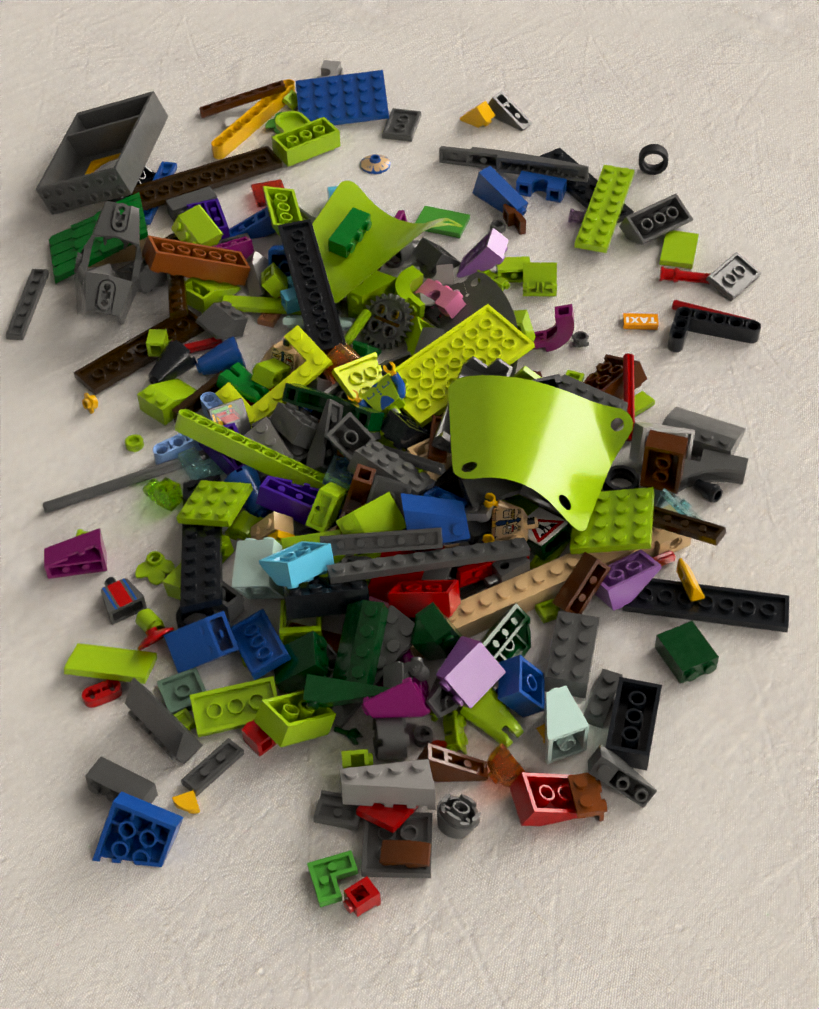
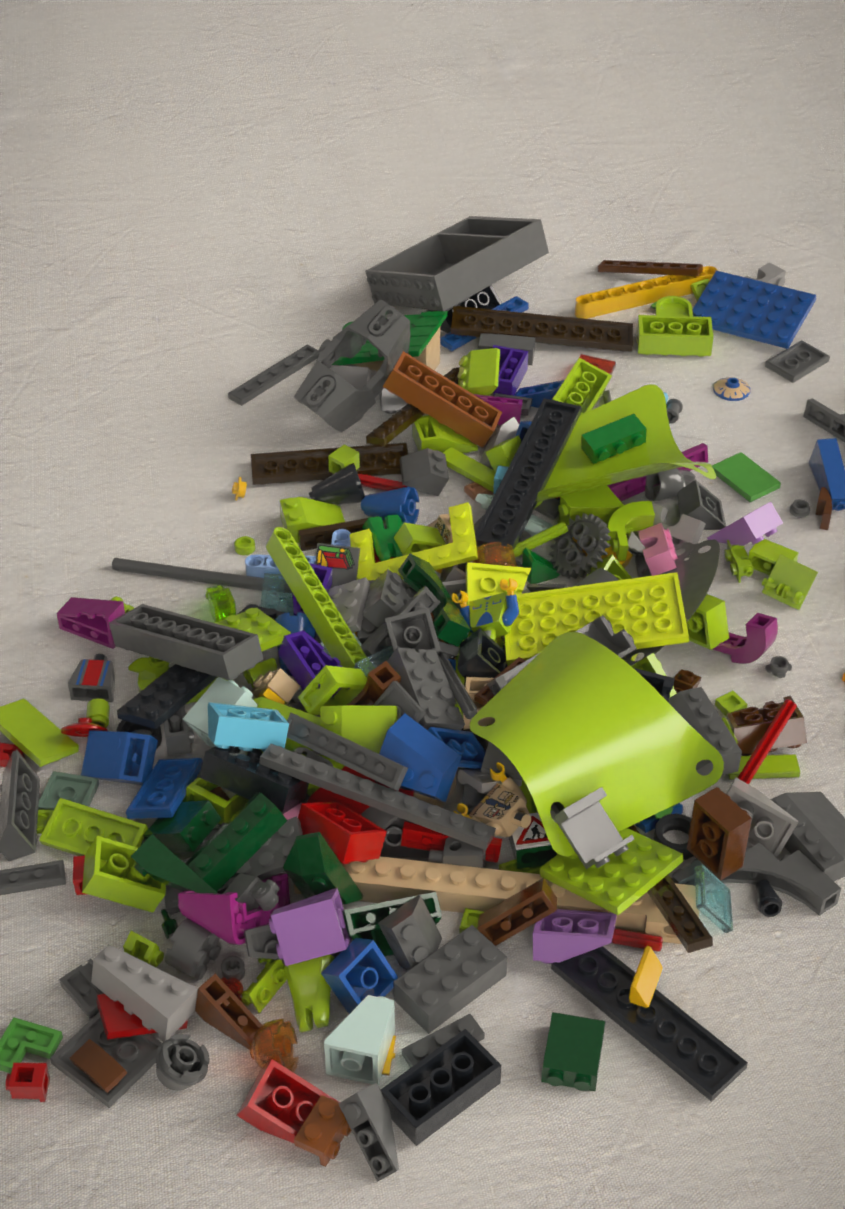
camera: 35 degrees right, 5 degrees down
(183, 529) = (187, 641): none -> dark grey brick
(526, 640) = (411, 933): none -> dark grey slope
(591, 503) = (591, 830): none -> panel

